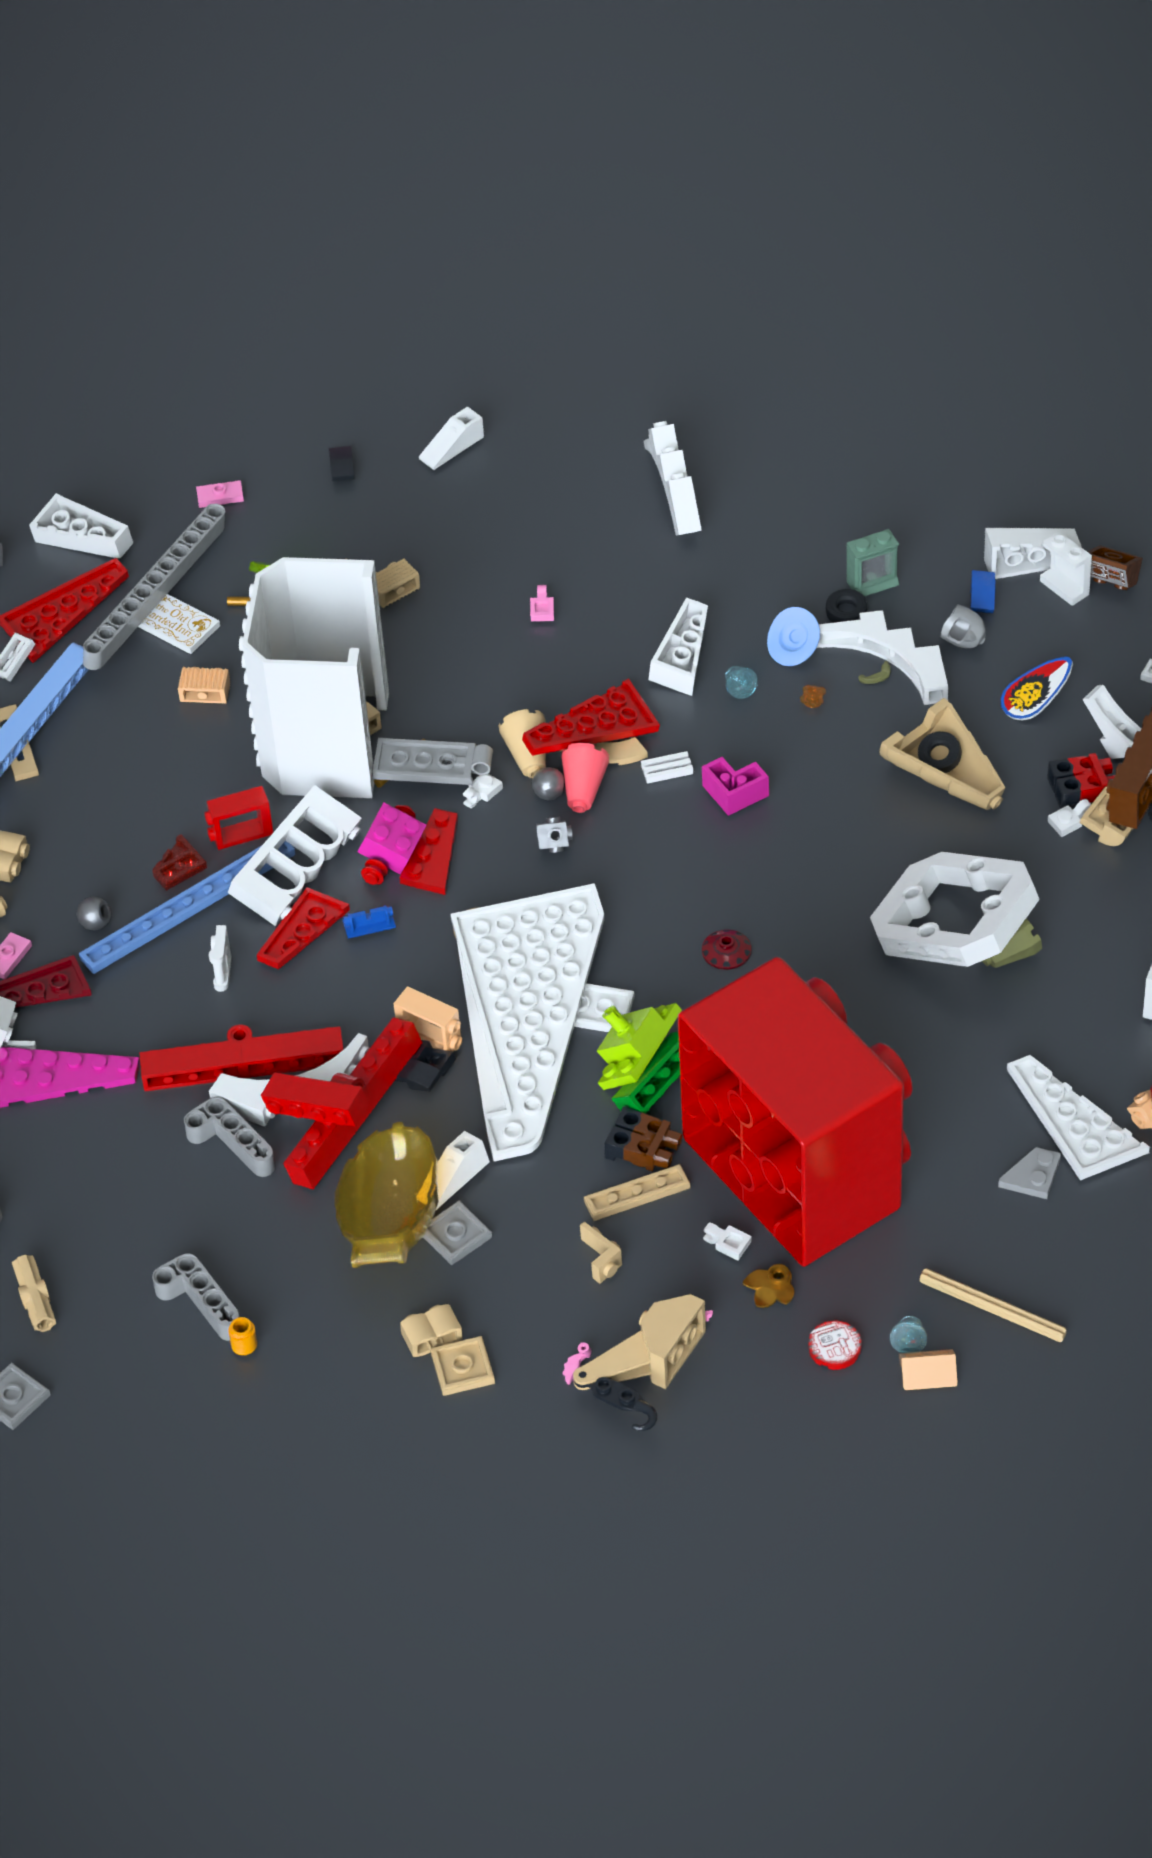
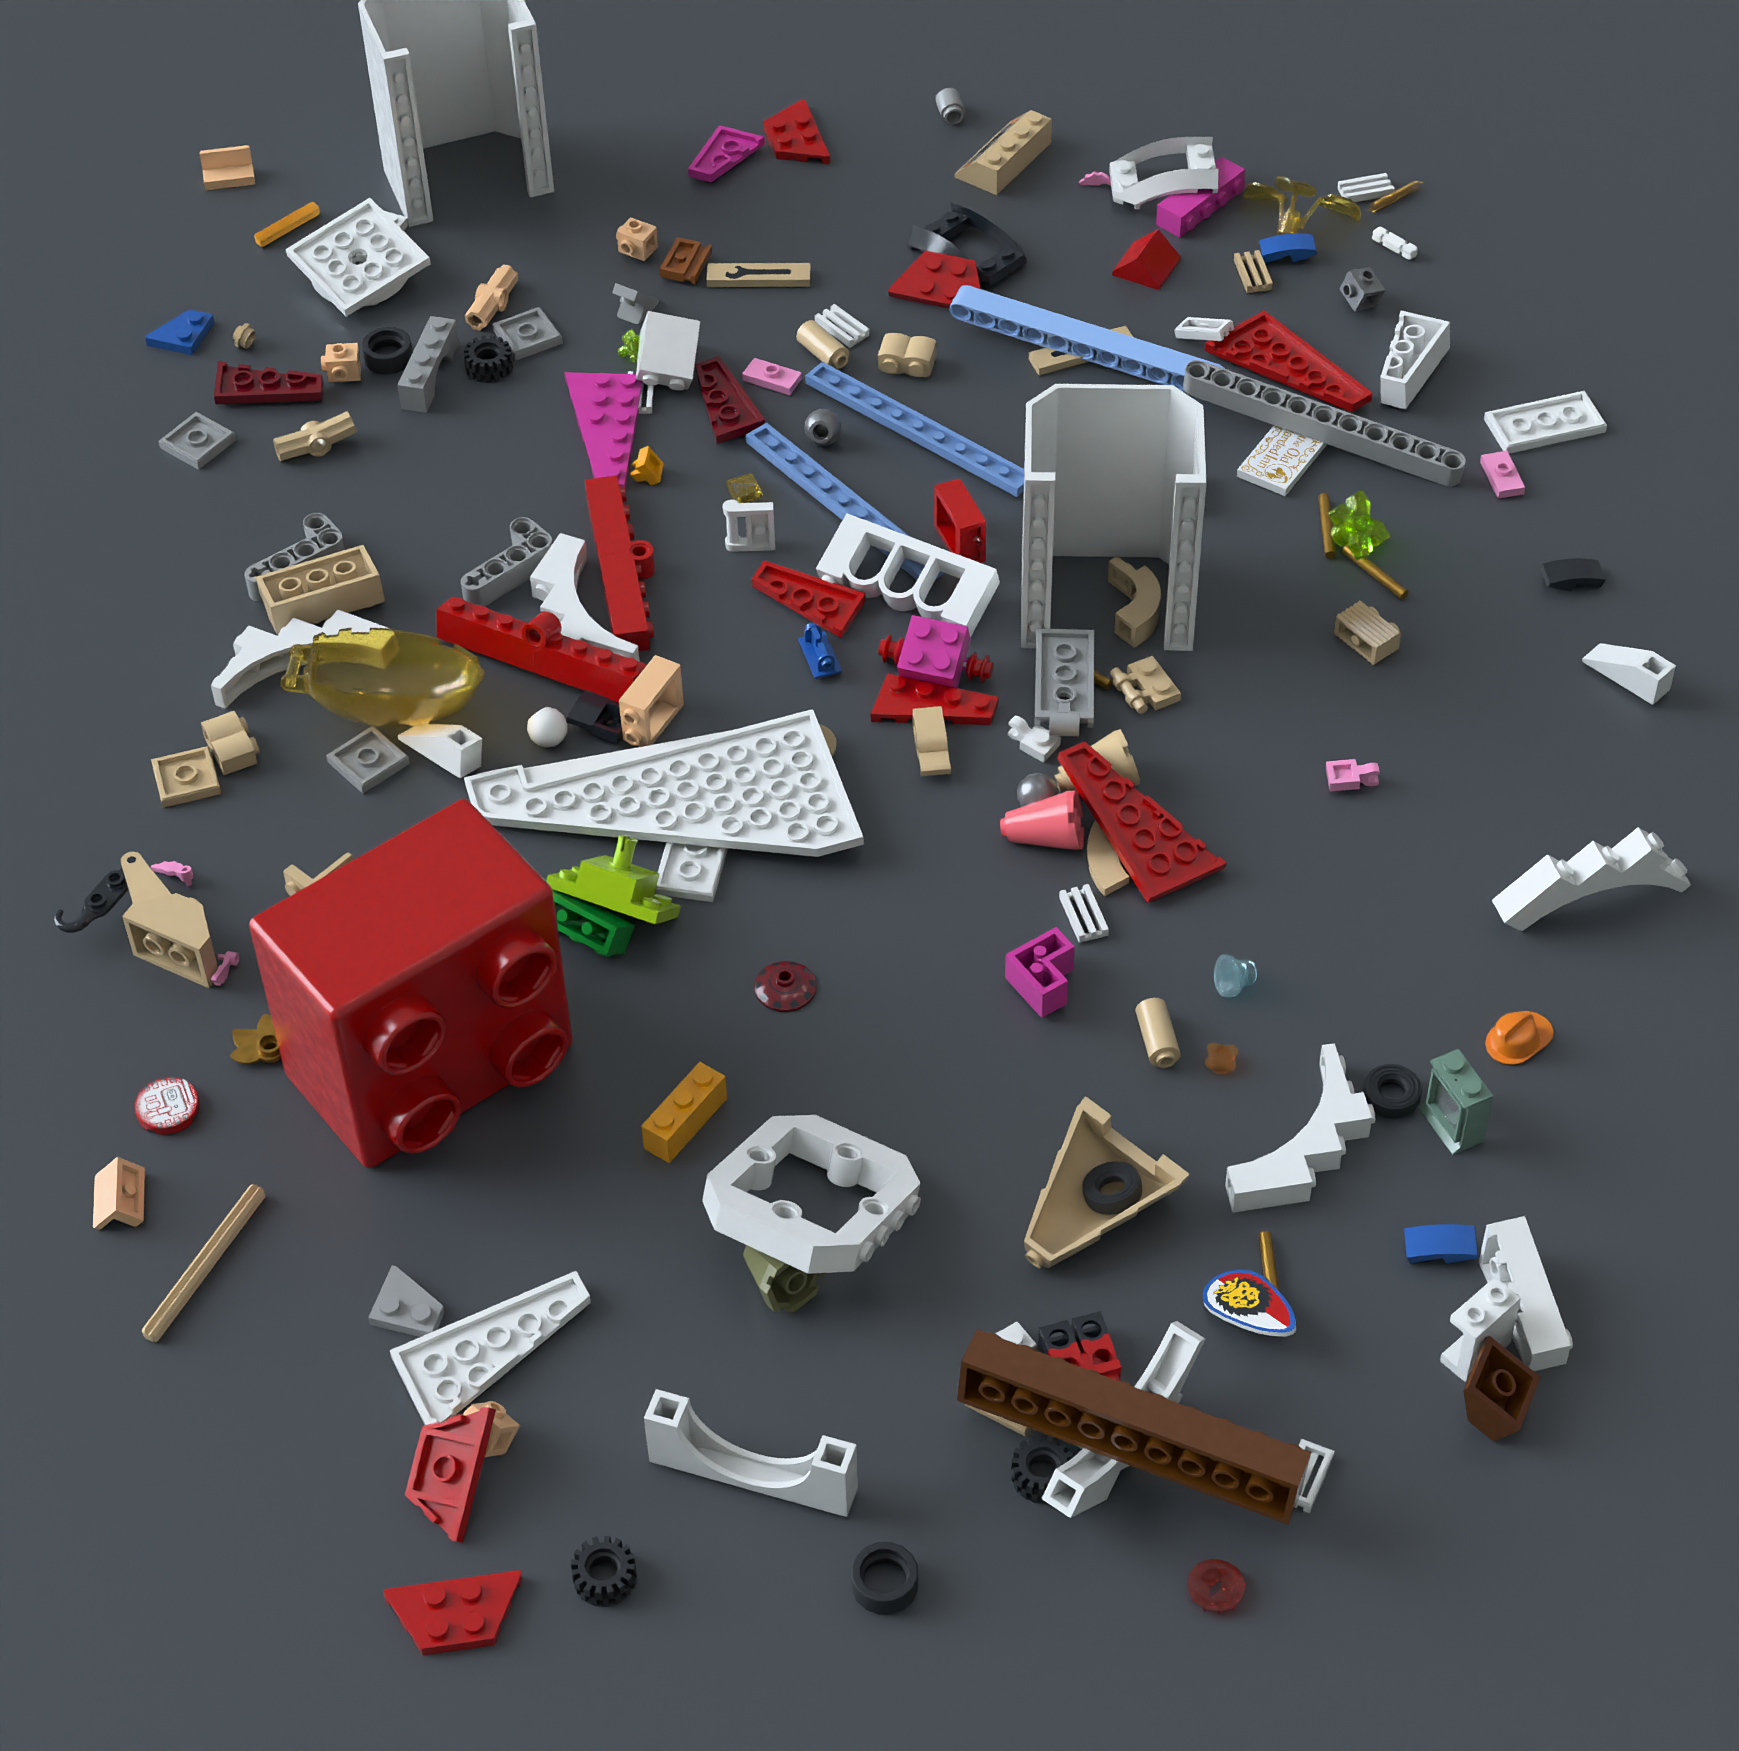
camera: 85 degrees right, 0 degrees up
(99, 853) = (917, 428): none -> medium blue plate
(116, 1038) = (647, 467): none -> light orange tile
(154, 975) = (744, 488): none -> clear yellow tile
(162, 464) = (1545, 422): none -> white tile
(178, 864) = (901, 490): clear red wing -> none
(242, 1336) = (234, 590): light orange brick -> none
(250, 1268) = (321, 587): none -> tan slope
(314, 1099) = (518, 601): red brick -> none
(321, 1311) = (264, 654): none -> white arch
(429, 719) = (1151, 681): none -> tan plate
(441, 1098) = (547, 727): none -> white piece
(481, 850) = (931, 741): none -> tan piece
(544, 834) = (951, 800): brick -> none
(679, 652) = (1282, 910): white wedge -> none
(792, 726) = (1157, 1032): none -> tan brick
(793, 636) = (1316, 1027): light blue hat -> none
(798, 539) = (1518, 1037): none -> orange piece
(863, 1001) = (684, 1112): none -> light orange brick
(878, 677) = (1267, 1130): olive piece -> none
(908, 1335) = (165, 1171): clear light blue piece -> none
(964, 628) = (1354, 1213): light grey piece -> none
(990, 683) = (1268, 1258): none -> pearl gold bar

